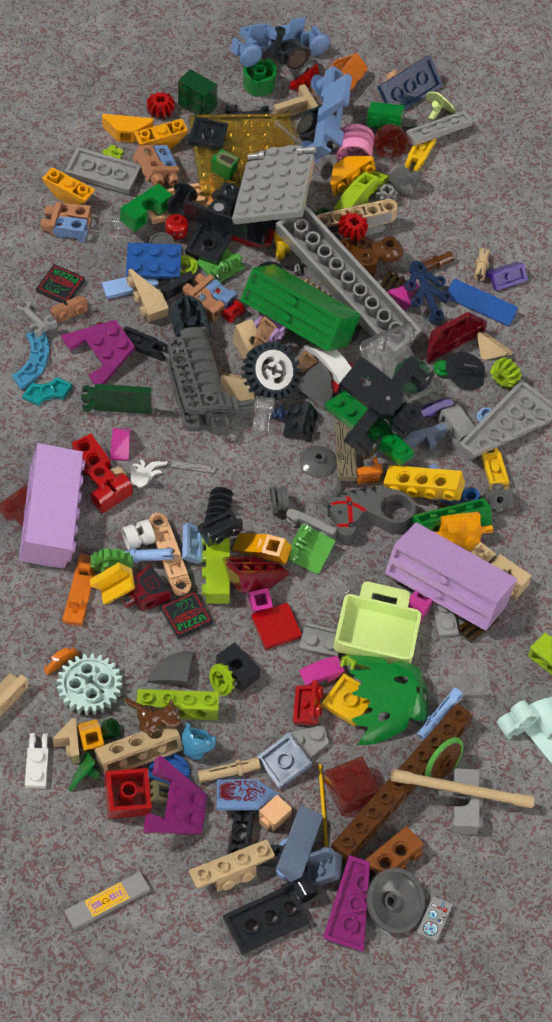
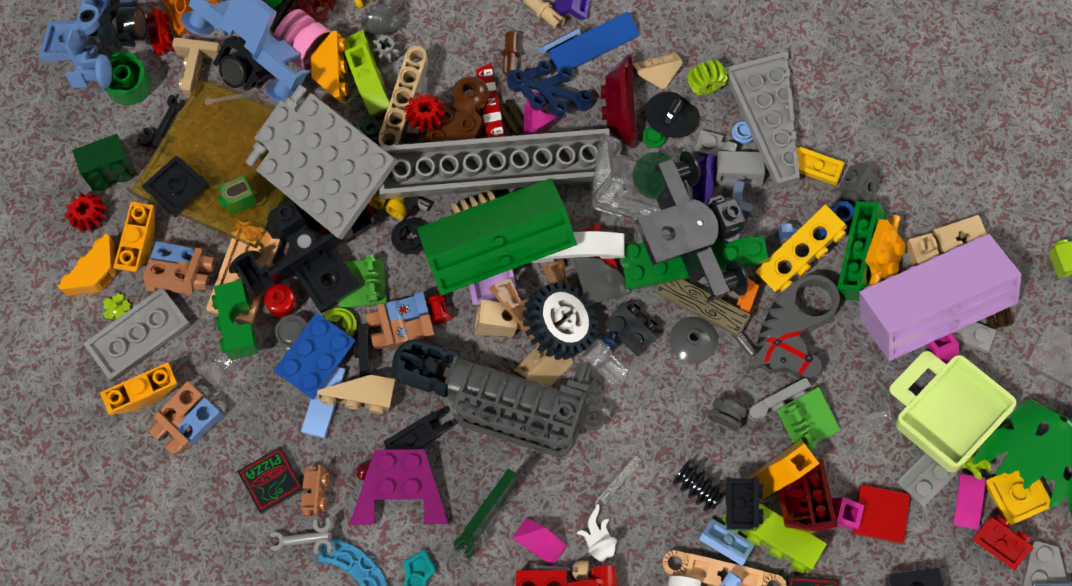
camera: 50 degrees left, 15 degrees up
(396, 266) = (491, 109): none -> red sticker
(454, 275) = (574, 32): none -> light blue piece
(464, 401) = (711, 143): none -> light grey plate

